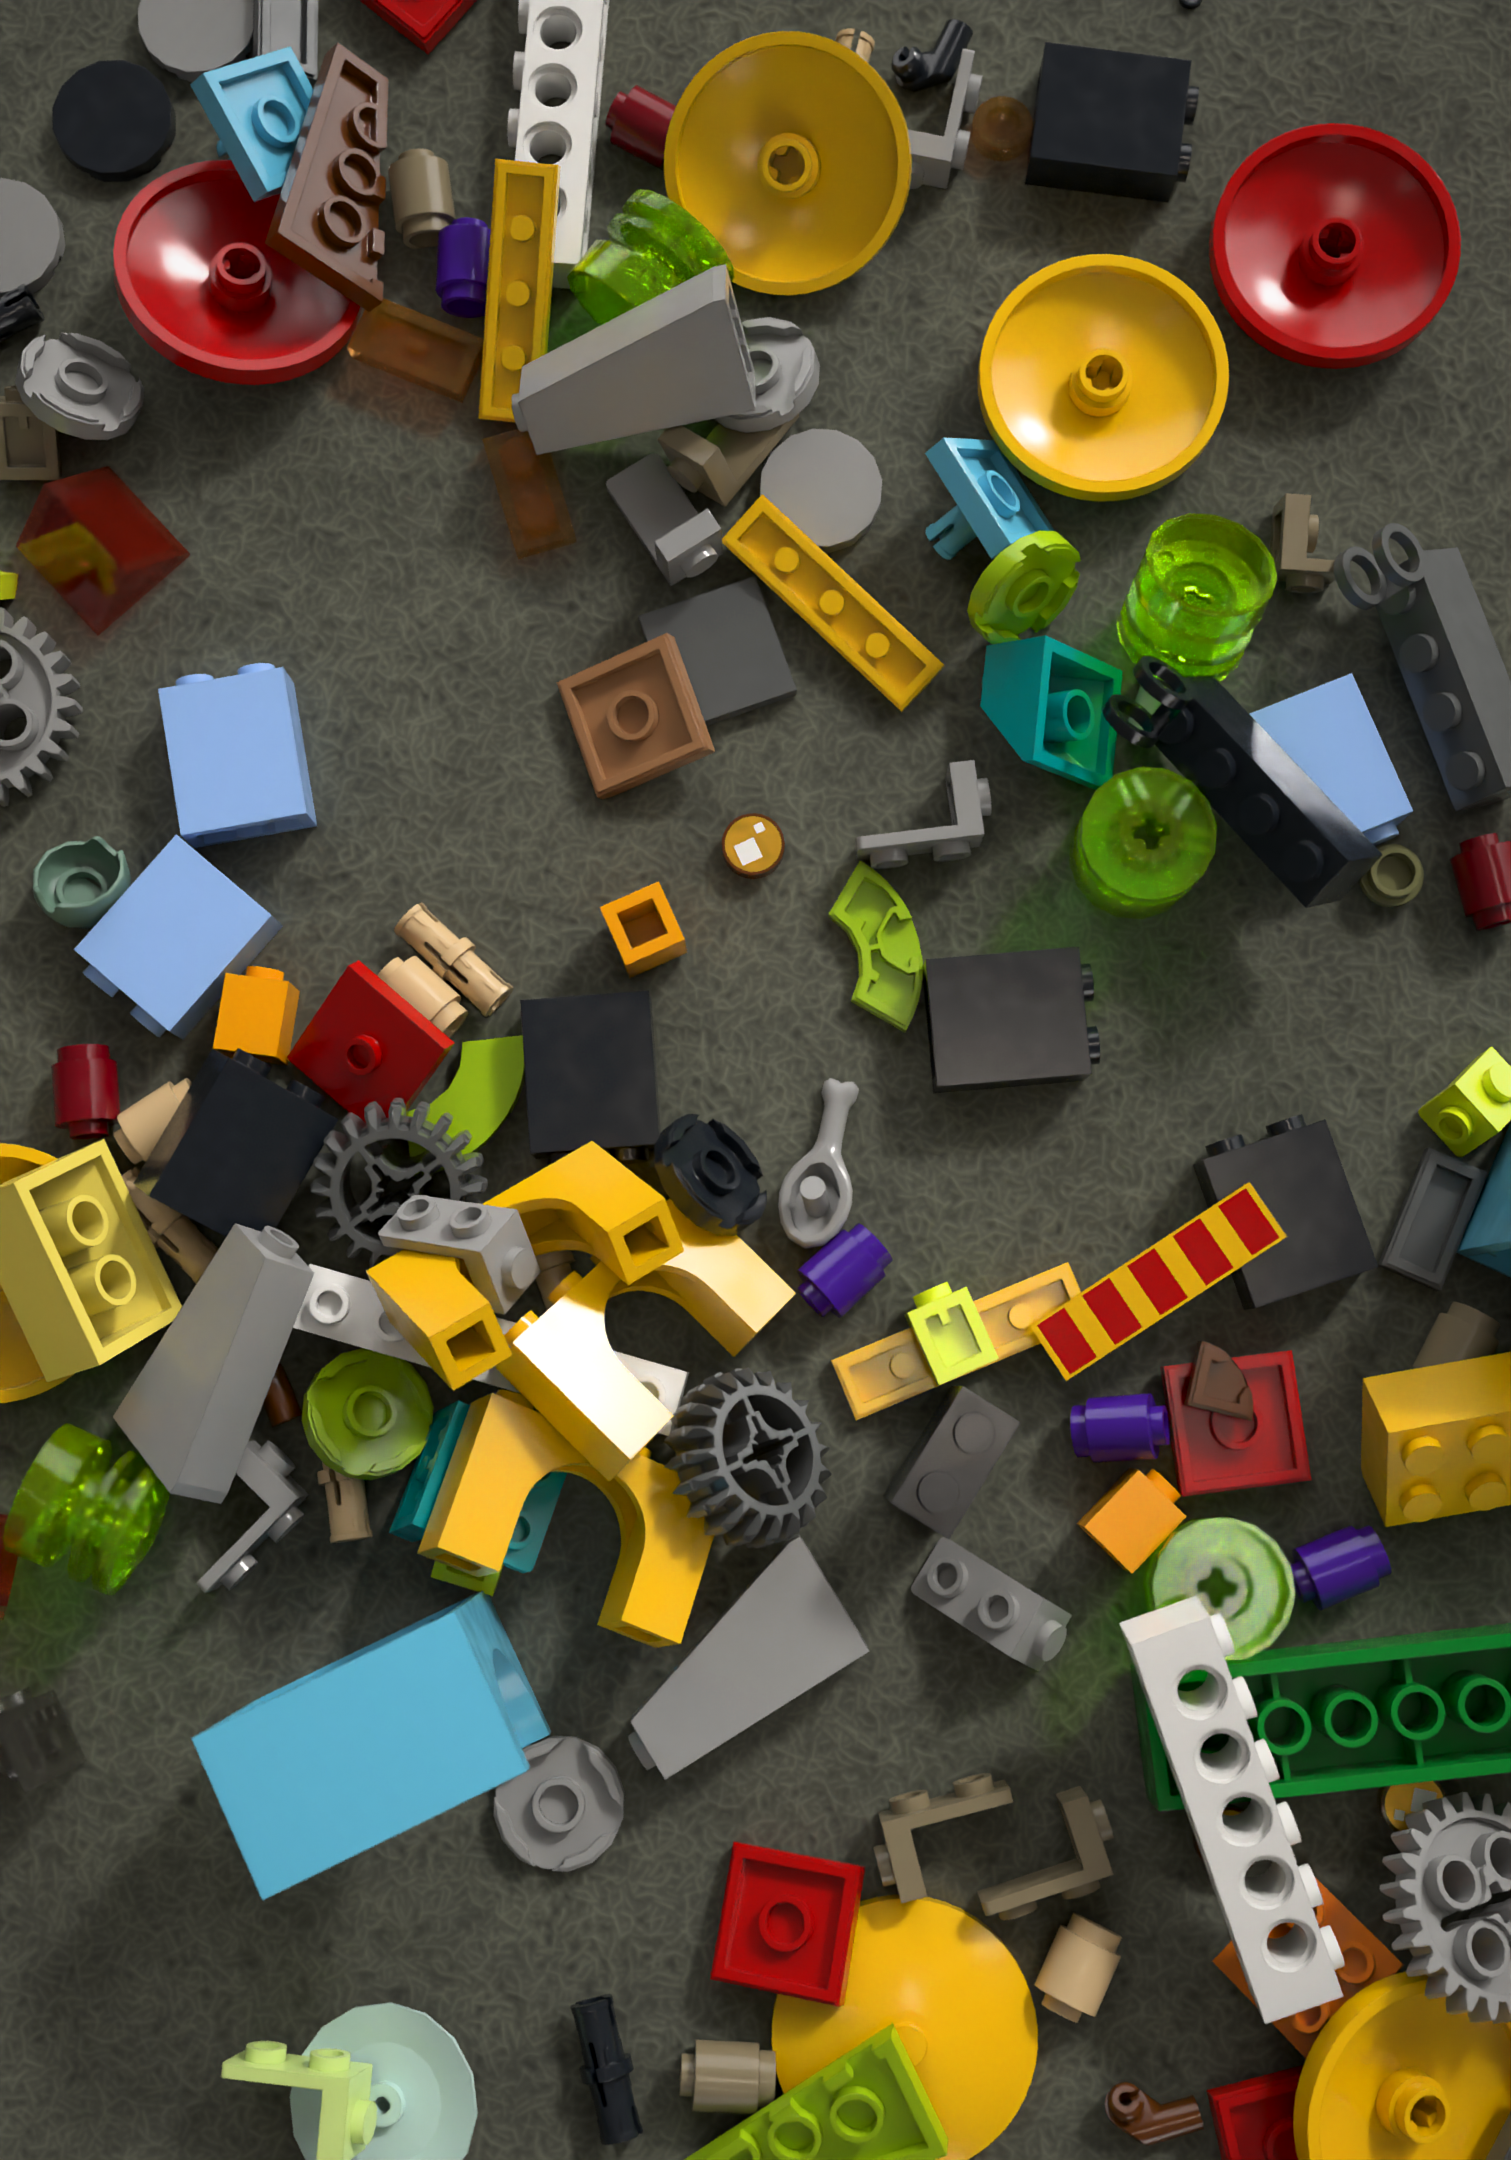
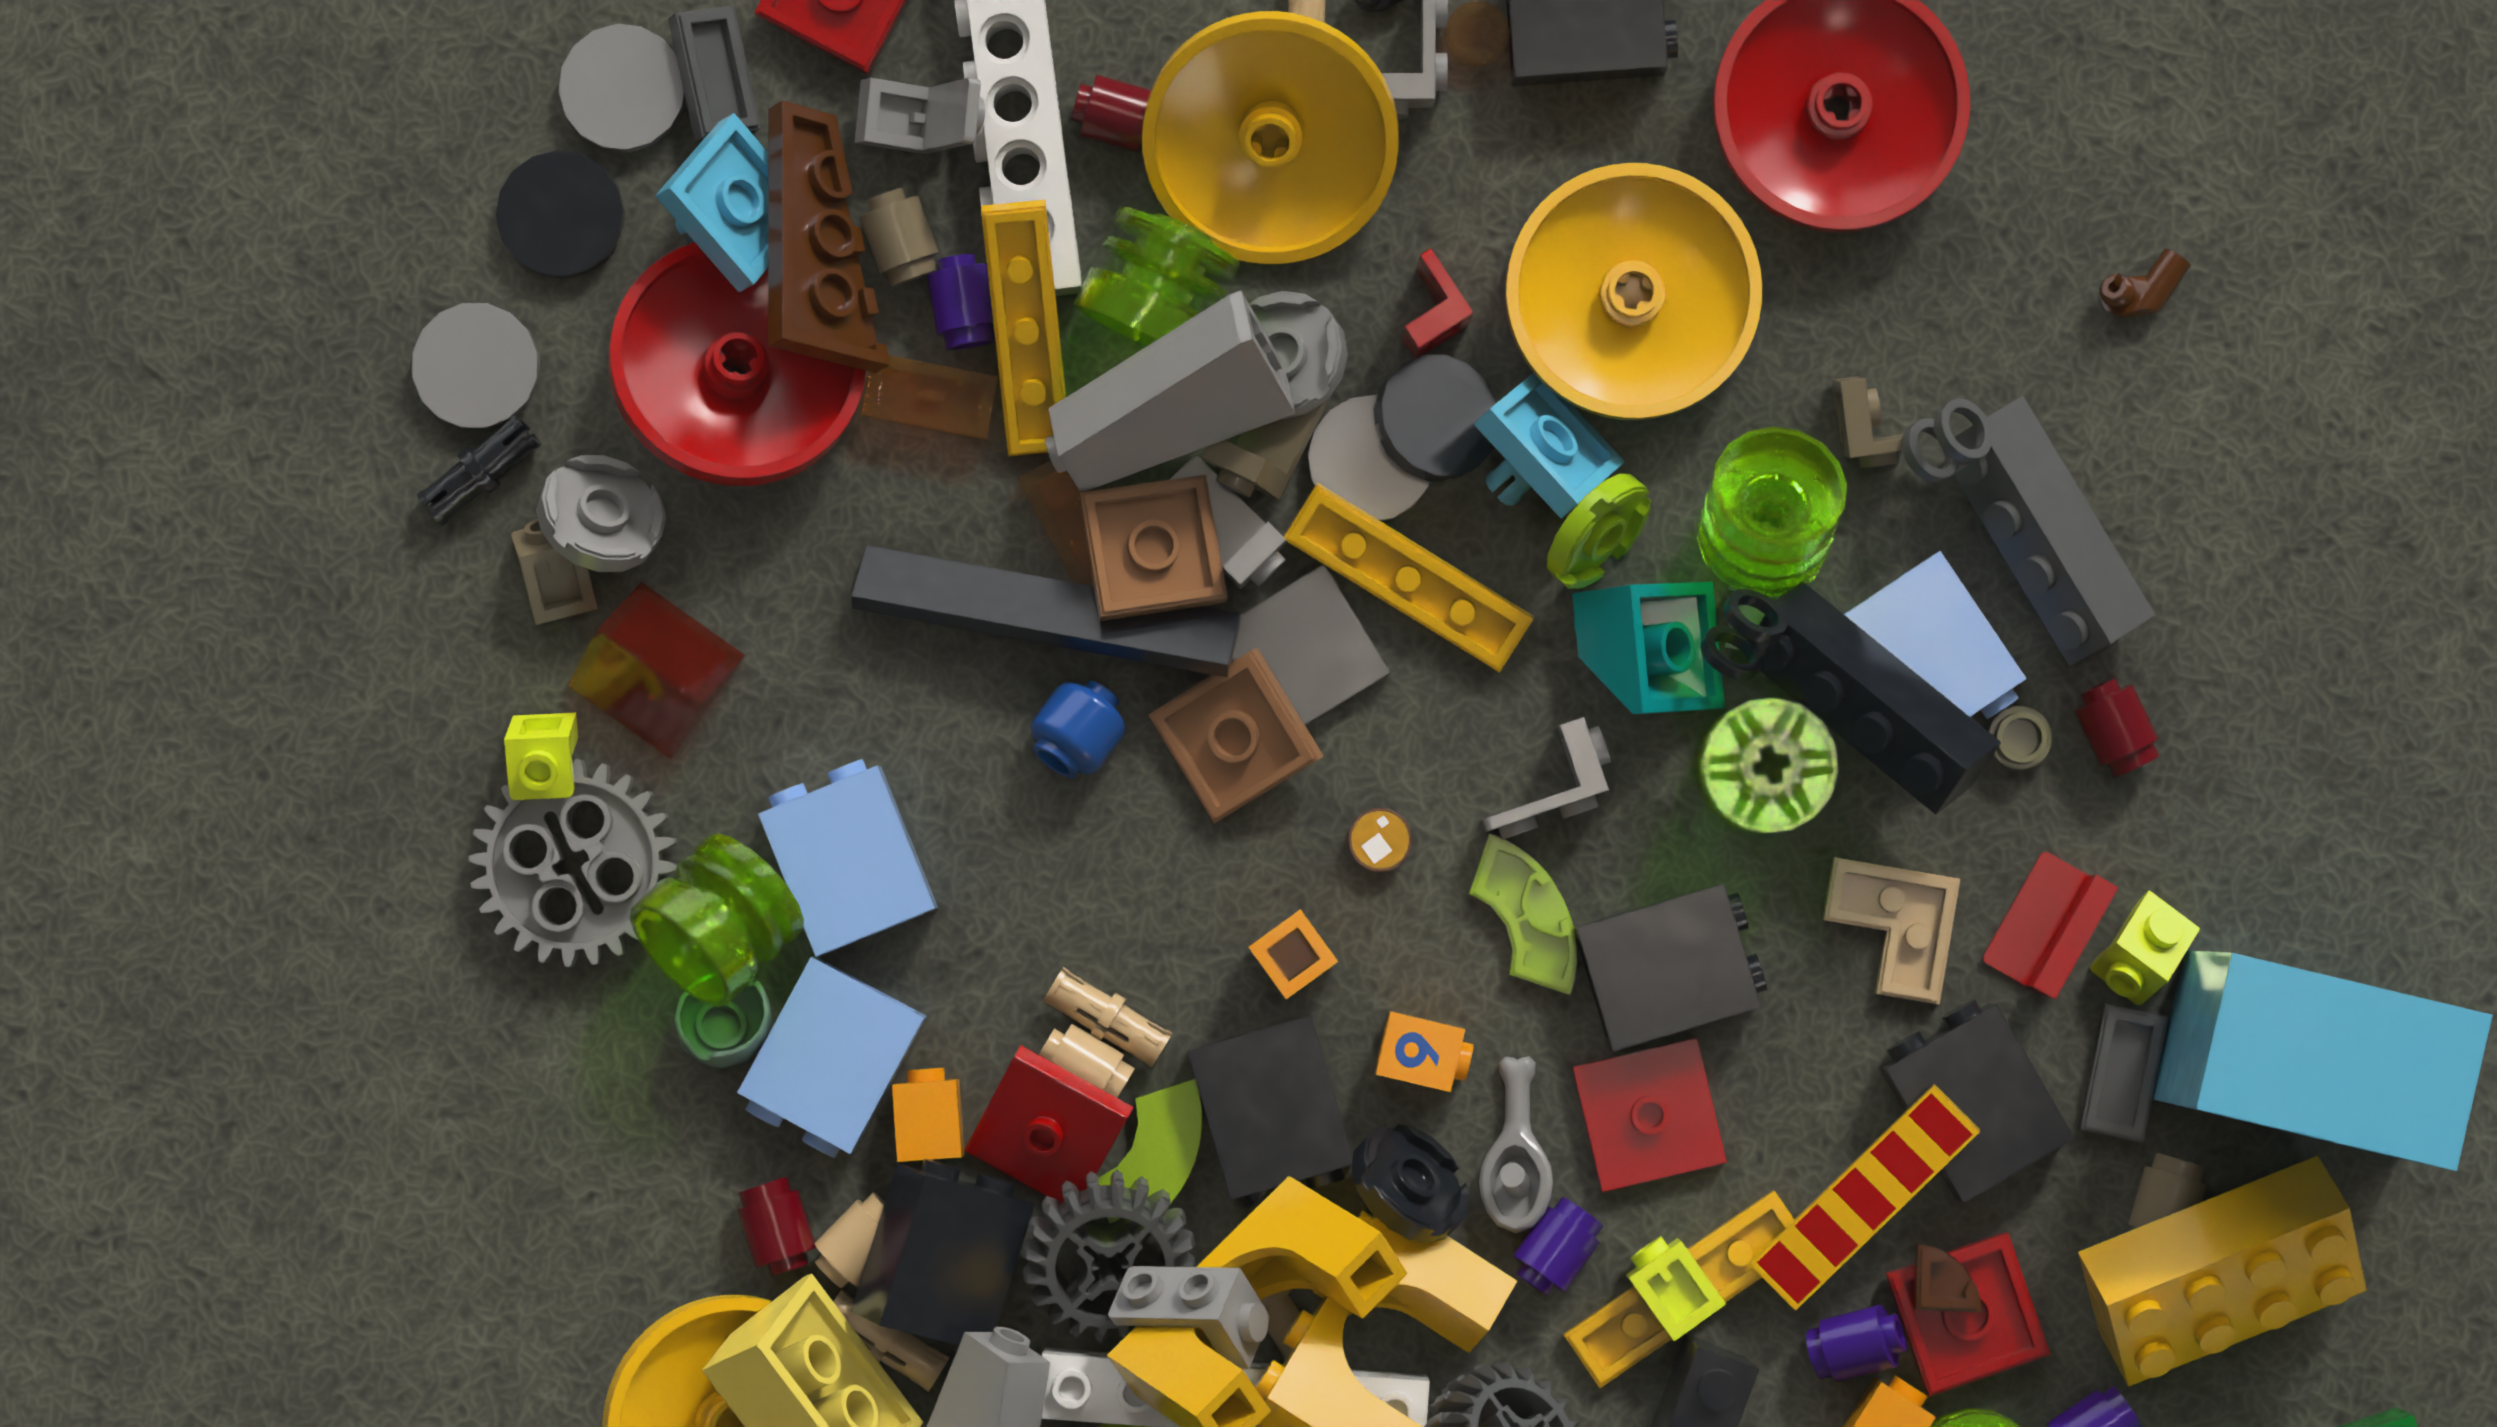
camera: 15 degrees left, 5 degrees up
(91, 776) = (717, 919): none -> clear neon green wheel
(459, 94) = (919, 116): none -> light grey bracket
(481, 562) = (1039, 611): none -> black tile
(485, 678) = (1077, 728): none -> blue head
(593, 520) = (1152, 547): none -> medium nougat plate
(750, 1053) = (1423, 1052): none -> light orange brick
(885, 461) = (1430, 416): none -> black tile
(912, 361) = (1441, 321): none -> red panel
(959, 1162) = (1649, 1114): none -> red plate
(1255, 1022) = (1913, 912): none -> tan tile
(1387, 1060) = (2048, 925): none -> red panel

